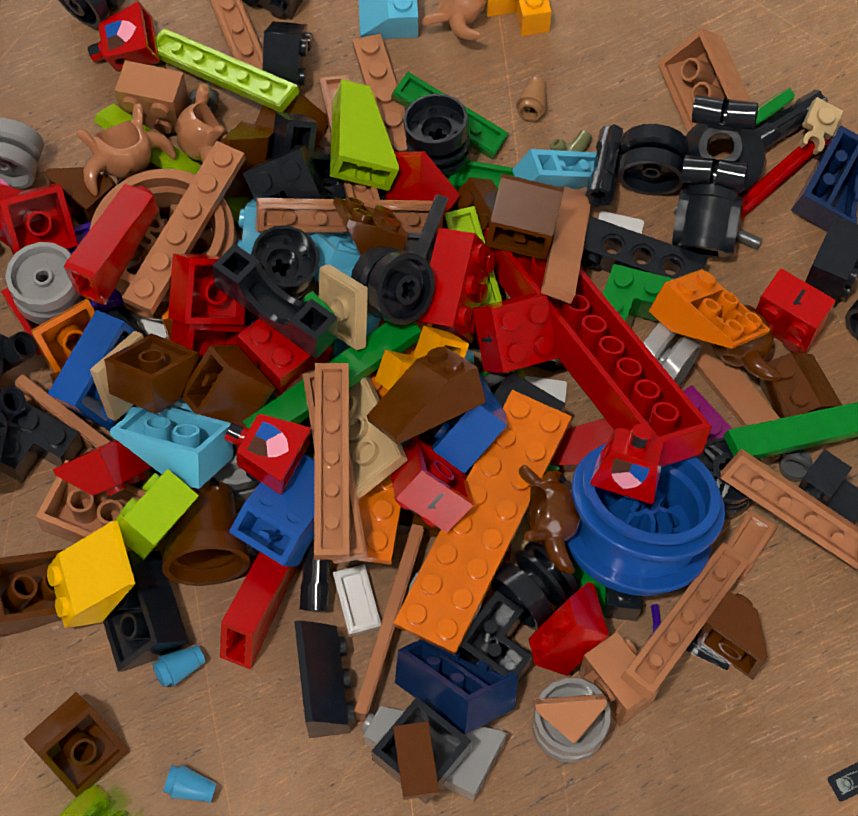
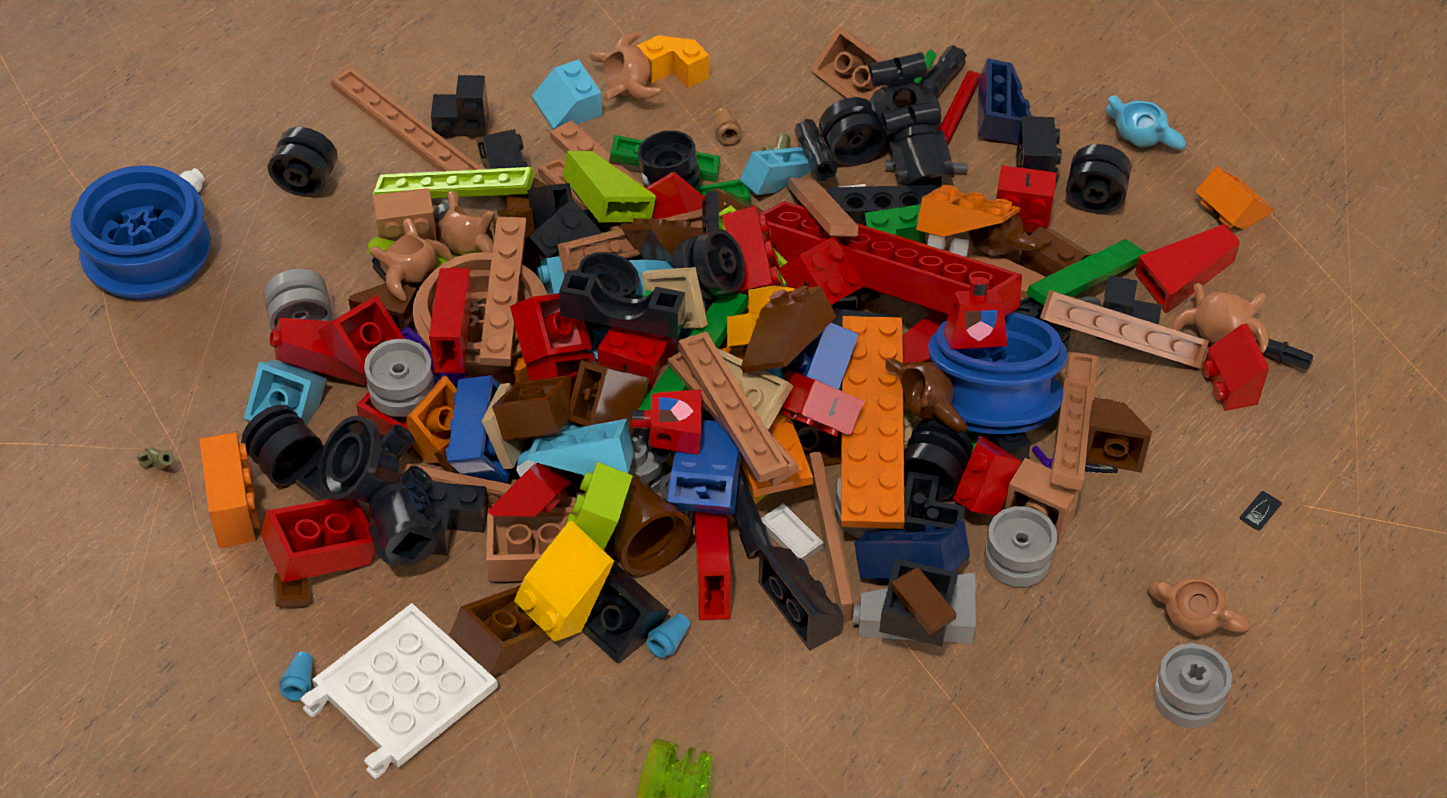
camera: 25 degrees left, 15 degrees down
(76, 744) = (614, 726): reddish brown slope -> none
(126, 37) = (352, 190): red torso -> none
(188, 785) = (729, 720): dark azure cone -> none
(524, 216) = (782, 190): reddish brown slope -> none
(571, 713) = (1022, 531): nougat slope -> none
(821, 123) = (968, 65): tan plate -> none

